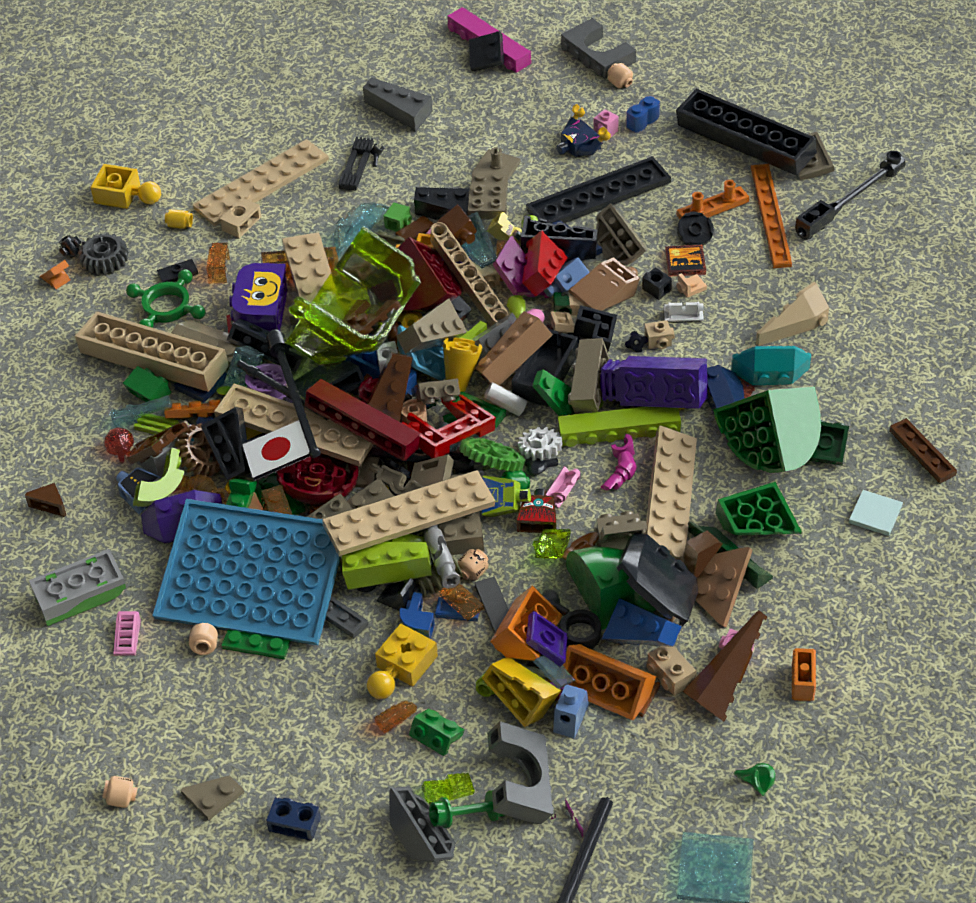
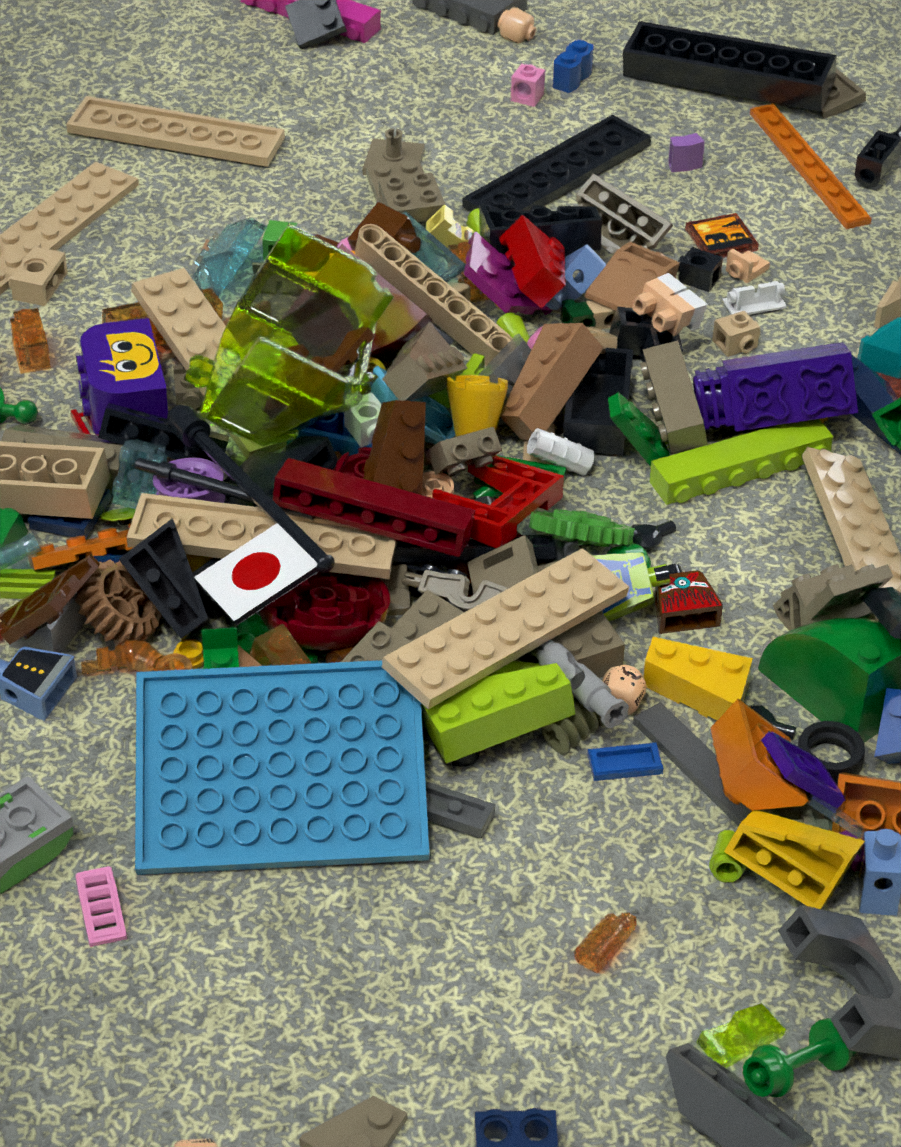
camera: 20 degrees left, 5 degrees down
(148, 492) = (63, 679): lime arch -> none
(163, 515) = (103, 712): dark purple wedge -> none
(203, 638) = (237, 887): light nougat head -> none
(256, 644) = (325, 879): green plate -> none
(348, 180) = (184, 206): black container -> none
(366, 123) = (176, 131): none -> tan plate
(376, 152) = (208, 163): black hand -> none
(397, 594) = (525, 757): black slope -> none
(398, 102) = (212, 94): dark grey wedge -> none
(403, 657) = (578, 853): yellow brick -> none
(417, 619) = (572, 793): blue brick -> none
(435, 731) = (679, 951): green bracket -> none
(438, 201) = (335, 211): black wedge -> none
(462, 601) = (630, 746): clear orange plate -> none
(522, 564) = (696, 676): none -> yellow wedge
(540, 443) = (640, 504): white gear -> none
(552, 543) = (729, 634): clear neon green piece -> none
(563, 485) = (702, 551): bright pink hinge -> none
(579, 137) = (500, 107): dark blue torso -> none
(584, 541) = (769, 629): dark orange dish -> none
(612, 310) = (670, 305): none -> light nougat hips
(625, 466) = (778, 510): dark pink piece -> none
(634, 336) = (705, 340): black plate -> none
(685, 192) = (686, 153): none -> medium lavender piece
(695, 229) = (717, 194): black tile -> none
(729, 199) = (720, 166): orange plate -> none

